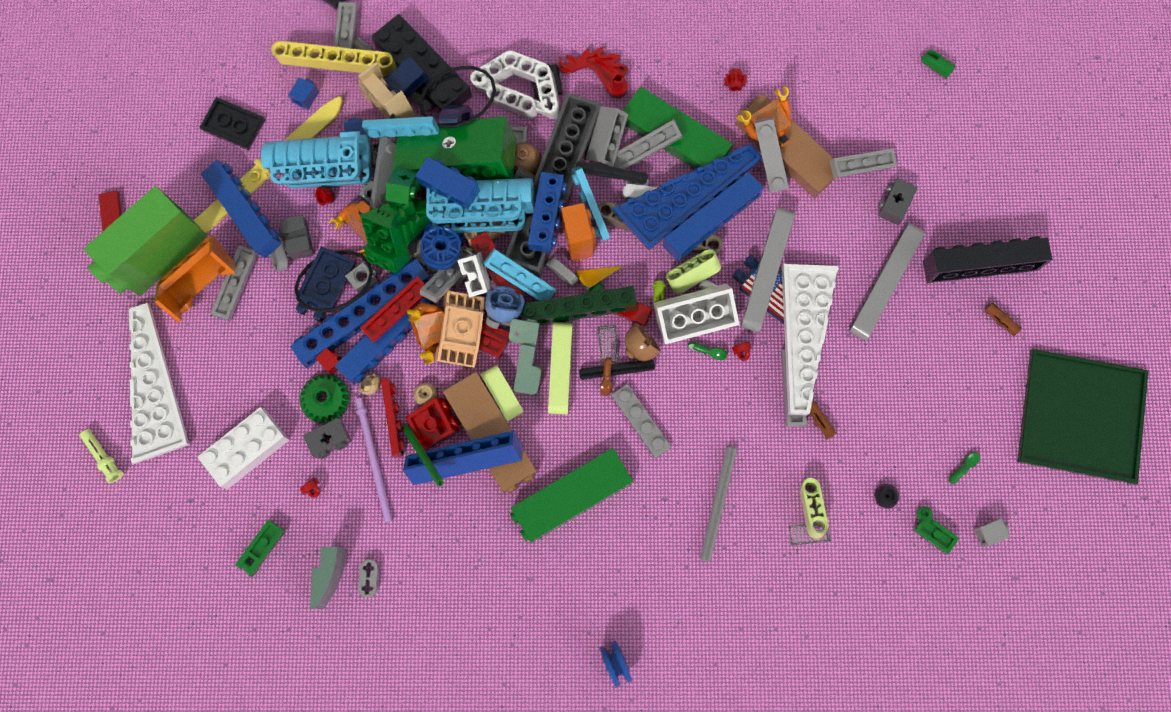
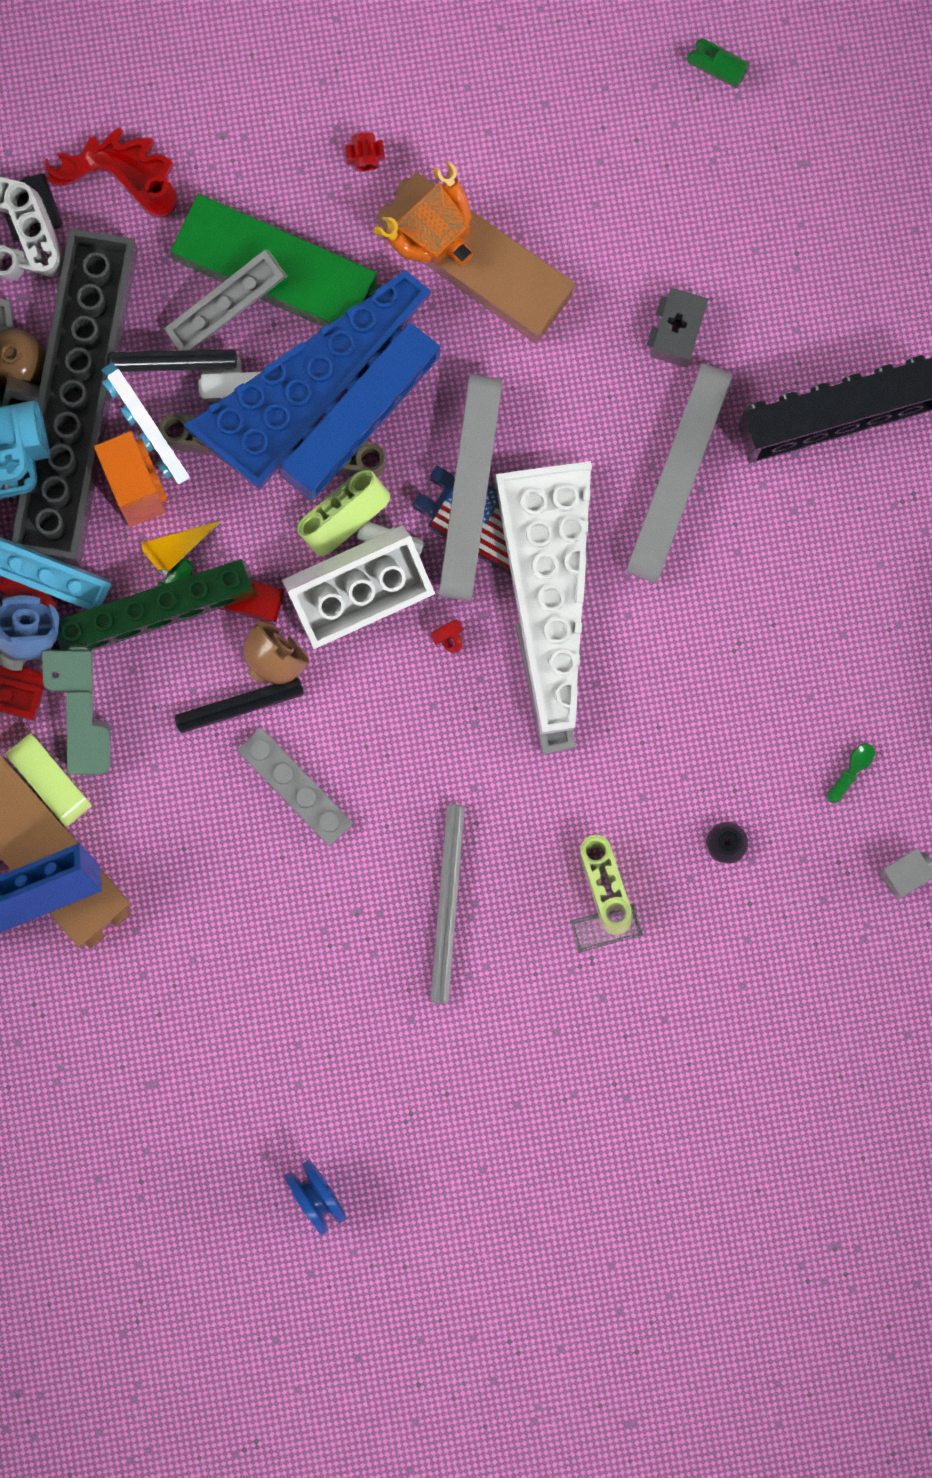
camera: 15 degrees left, 5 degrees up
(546, 212) = (70, 454): blue brick -> none
(560, 368) = (141, 719): yellowish green beam -> none
(562, 271) = (116, 550): light grey beam -> none
(571, 496) = (196, 935): green brick -> none
(606, 136) = (153, 296): light grey brick -> none
(606, 385) = (225, 736): dark orange piece -> none
(608, 343) = (217, 663): clear tile -> none
(659, 291) = (289, 556): lime pin -> none
(717, 352) = (405, 647): green piece -> none
(771, 154) = (445, 284): light grey plate -> none
(822, 421) = (600, 734): dark orange pin -> none
(863, 163) = (608, 270): light grey plate -> none
(933, 531) = (812, 888): green hinge -> none
(1003, 319) = (885, 506): dark orange pin -> none

